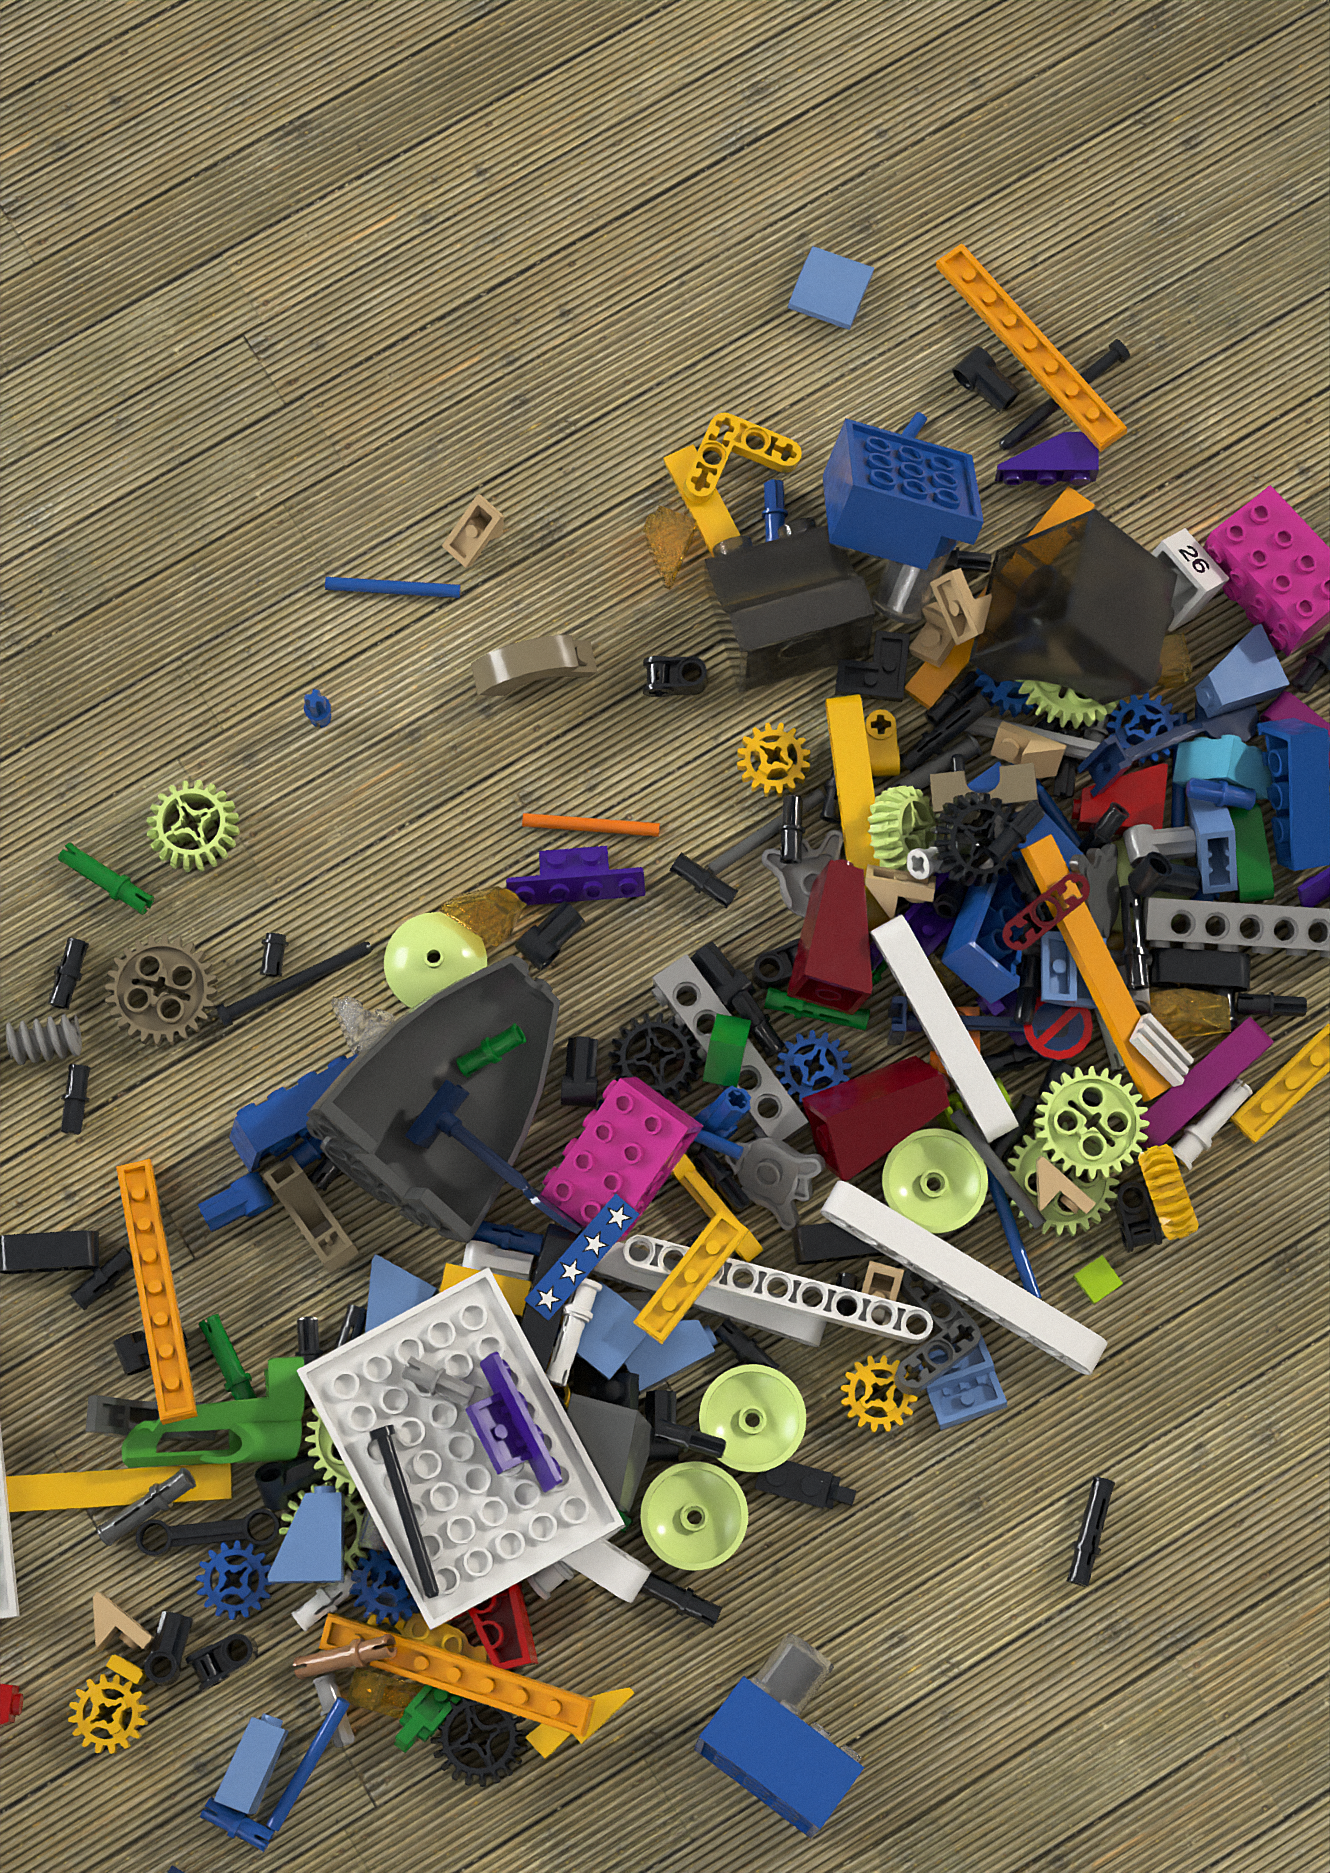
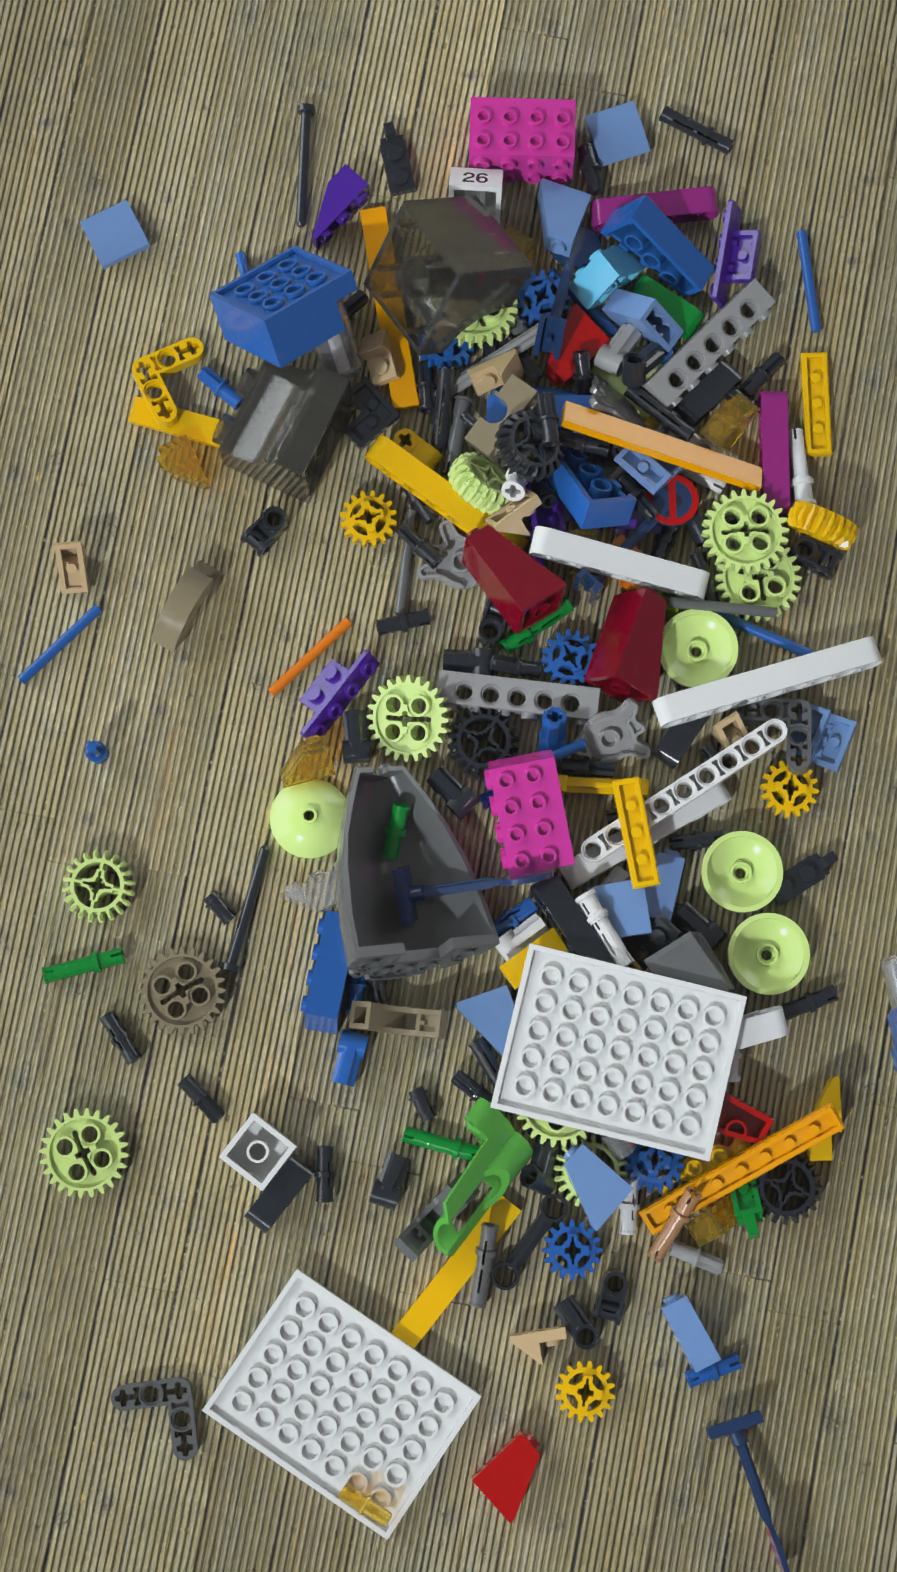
camera: 50 degrees left, 5 degrees up
(44, 1040) = (149, 1086): light grey piece -> none
(69, 1194) = (258, 1151): none -> white brick
(127, 1669) = (568, 1357): yellow tile -> none
(156, 1292) = (365, 1149): light orange tile -> none
(252, 1311) = (422, 1103): none -> black pin
(308, 1764) = (715, 1299): blue bar -> none
(406, 1509) = (577, 1091): black bar -> none
(438, 1381) = (572, 1030): light grey axle -> none
(508, 1428) = (636, 1014): dark purple bracket -> none
(581, 1257) = (570, 884): blue sticker -> none
(589, 989) = (409, 694): none -> yellowish green gear
(689, 1438) = (723, 917): black axle -> none
(726, 1050) = (518, 696): green slope -> none
(961, 611) = (384, 333): tan slope -> none
(980, 373) = (248, 198): black piece -> none
(1031, 347) = (258, 155): light orange tile -> none
(1052, 1181) = (760, 584): tan slope -> none
(1061, 888) = (599, 450): dark red beam -> none
(1097, 1280) = (831, 610): lime tile -> none
(1149, 478) = (396, 162): none -> black hinge
(1164, 1049) = (738, 455): white tile -> none
(1221, 793) = (623, 288): blue axle -> none

